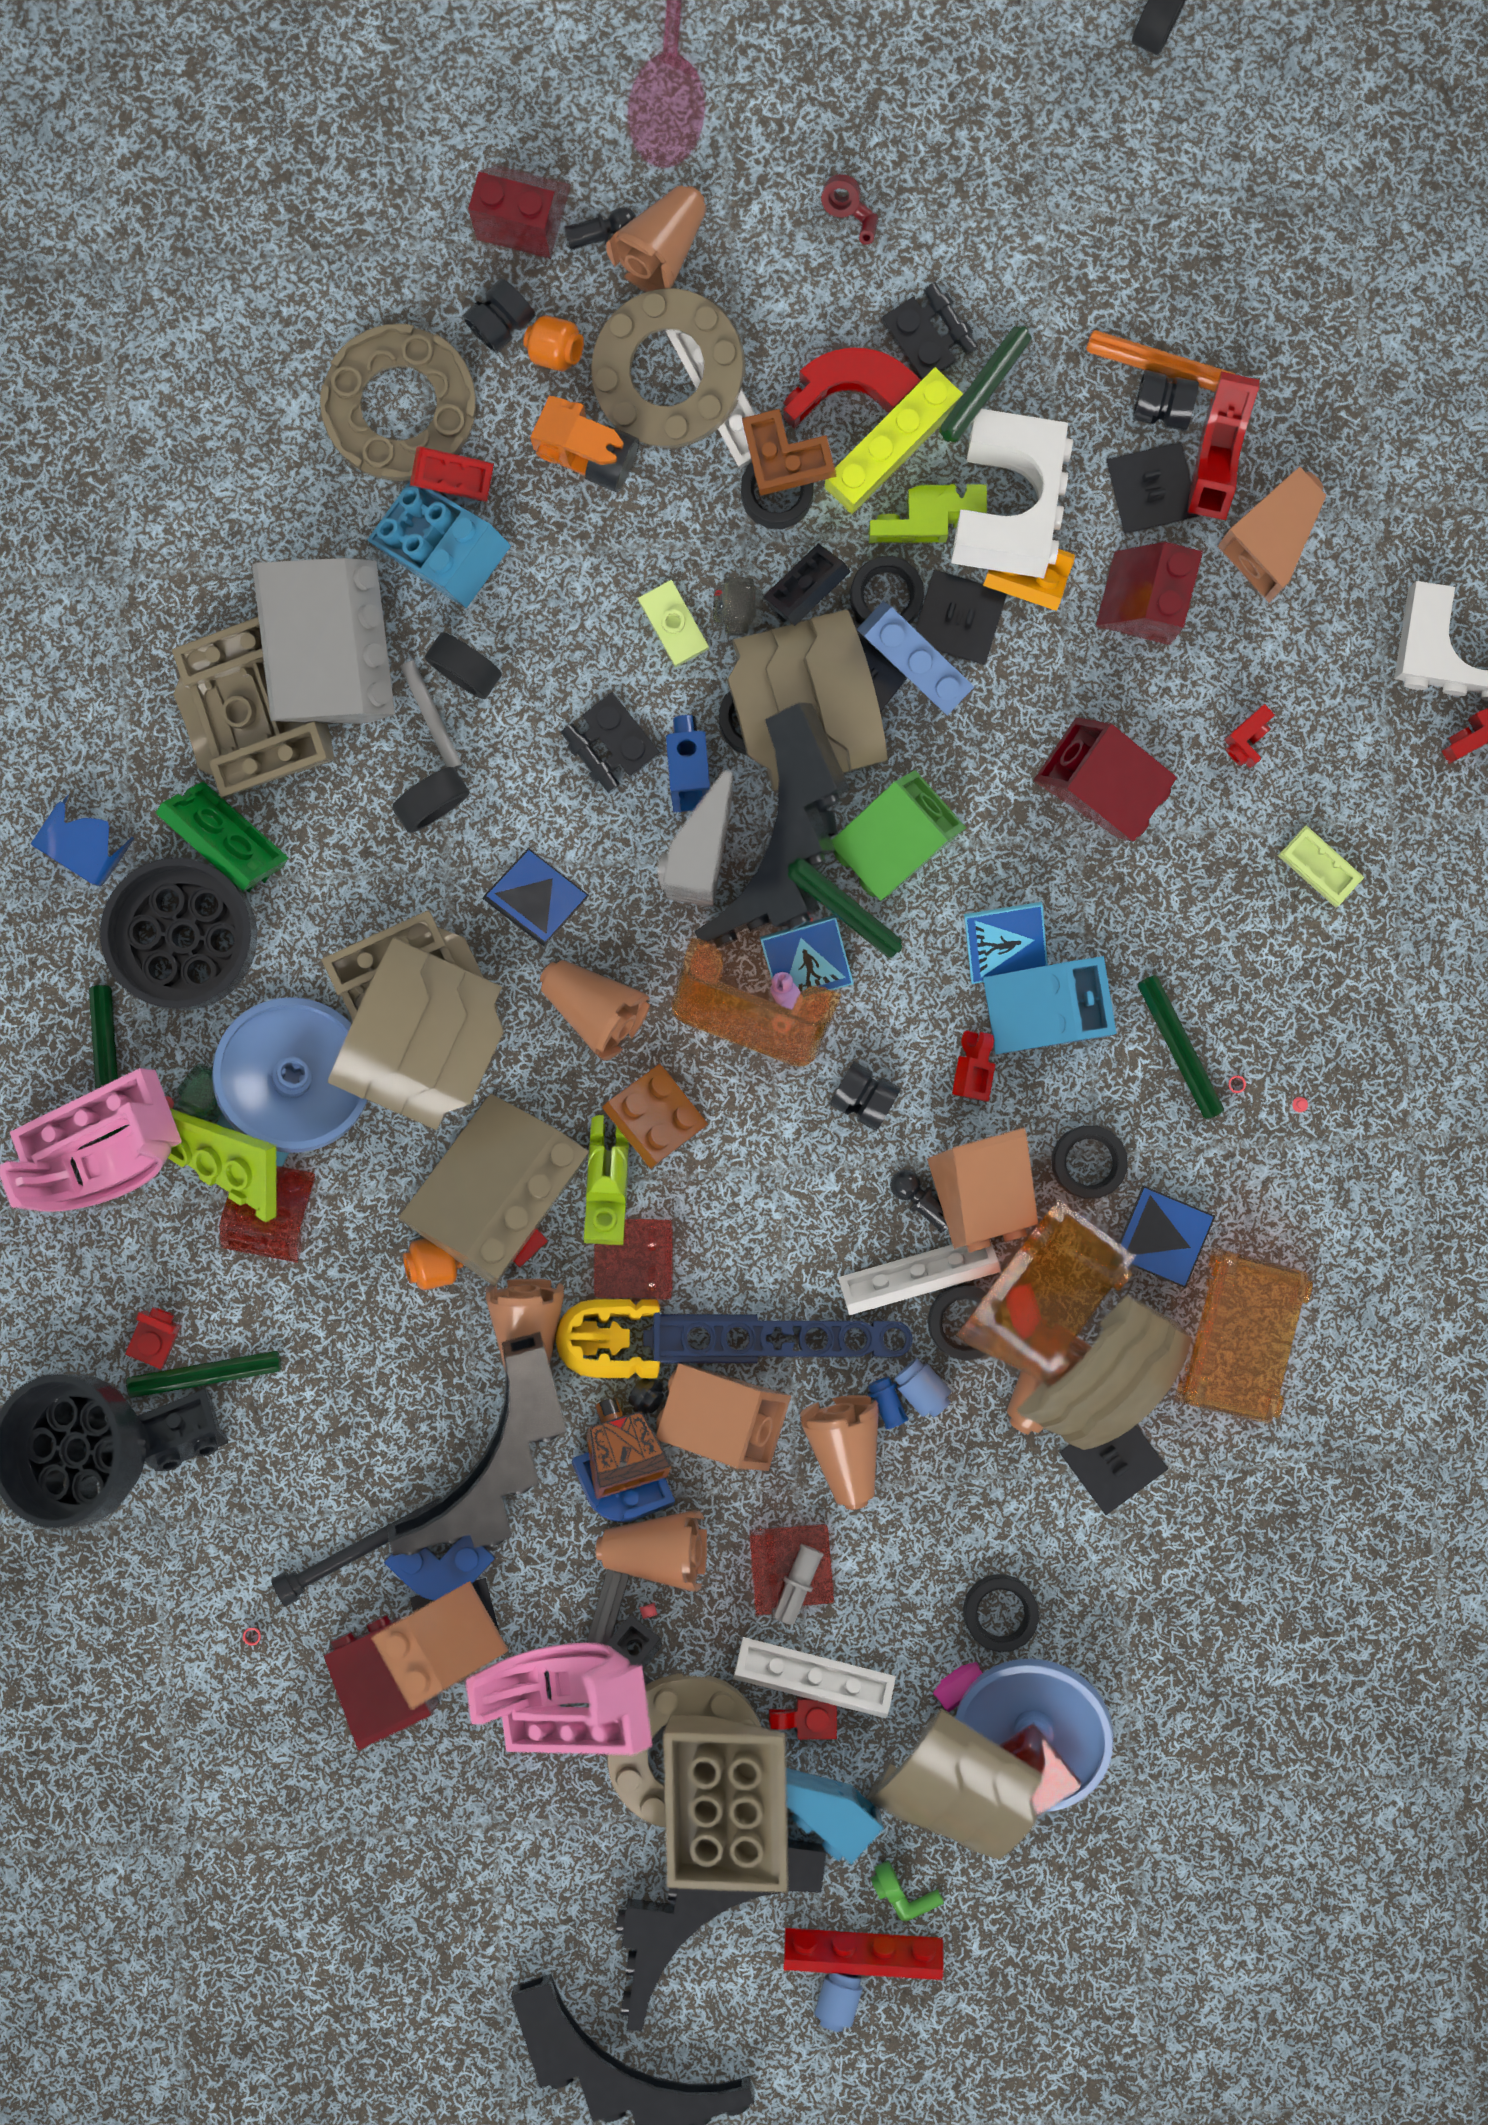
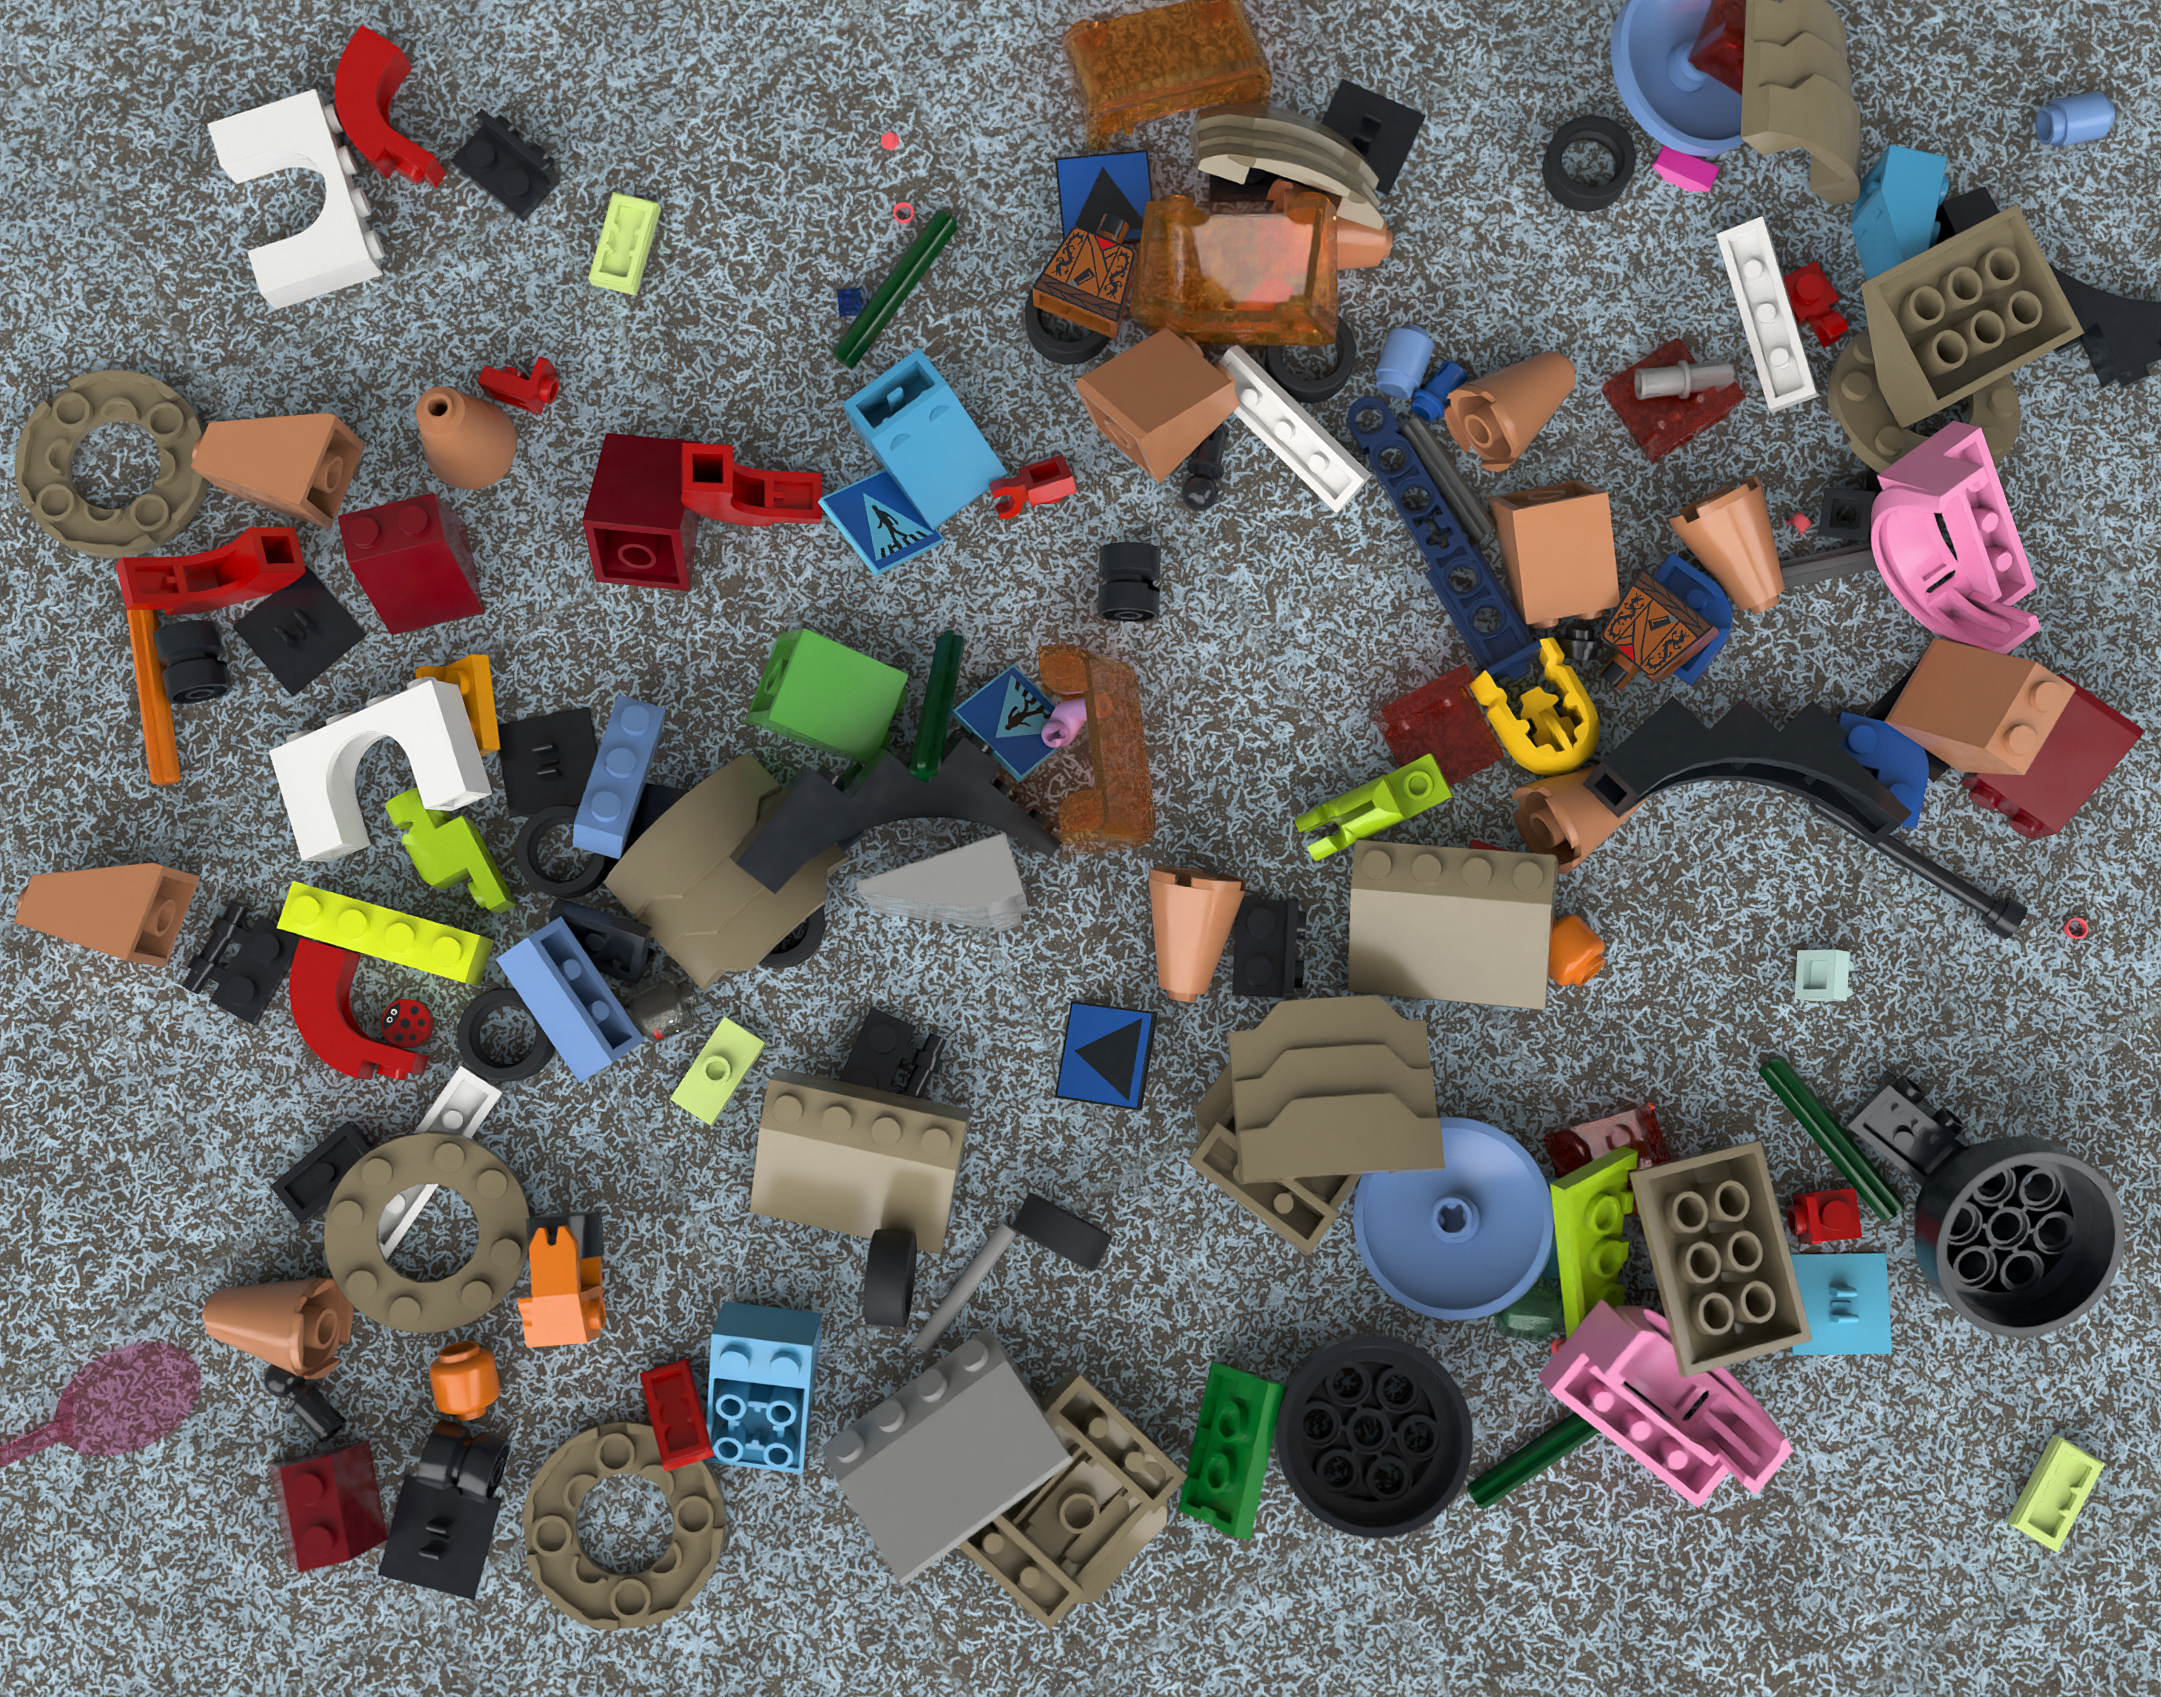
camera: 120 degrees left, 5 degrees down
(79, 845) = (1332, 1613): blue piece -> none
(89, 1314) = (1844, 1303): none -> medium azure piece
(166, 1238) = (1720, 1257): none -> dark tan slope
(316, 1433) = (1823, 975): none -> light aqua tile
(457, 273) = (439, 1539): none -> black piece
(550, 1051) = (1266, 948): none -> black bracket
(558, 687) = (857, 1158): none -> dark tan slope
(655, 1115) = (1275, 793): dark orange plate -> none
(687, 764) = (886, 953): blue torso -> none
(749, 316) = (313, 1180): none -> black plate
(773, 543) = (570, 999): none -> medium blue brick
(782, 464) = (474, 1038): dark orange plate -> none
(820, 1372) = (1448, 479): none -> dark grey axle
(824, 421) = (407, 1023): none -> red tile
(849, 205) = (138, 1128): dark red plate -> none
(863, 1954) = (2016, 118): red plate -> none
(888, 1885) = (1933, 128): bright green plate -> none
(985, 384) = (270, 864): dark green axle -> none
(1007, 257) = (113, 910): none -> nougat slope
(1076, 858) = (744, 495): none -> red arch
(1103, 1187) = (1089, 277): none -> torso
(1188, 1008) = (849, 302): none -> clear blue piece
(1228, 677) = (465, 438): none -> nougat cone
(1371, 365) = (52, 438): none -> dark tan plate
(1427, 808) = (506, 167): none -> black bracket

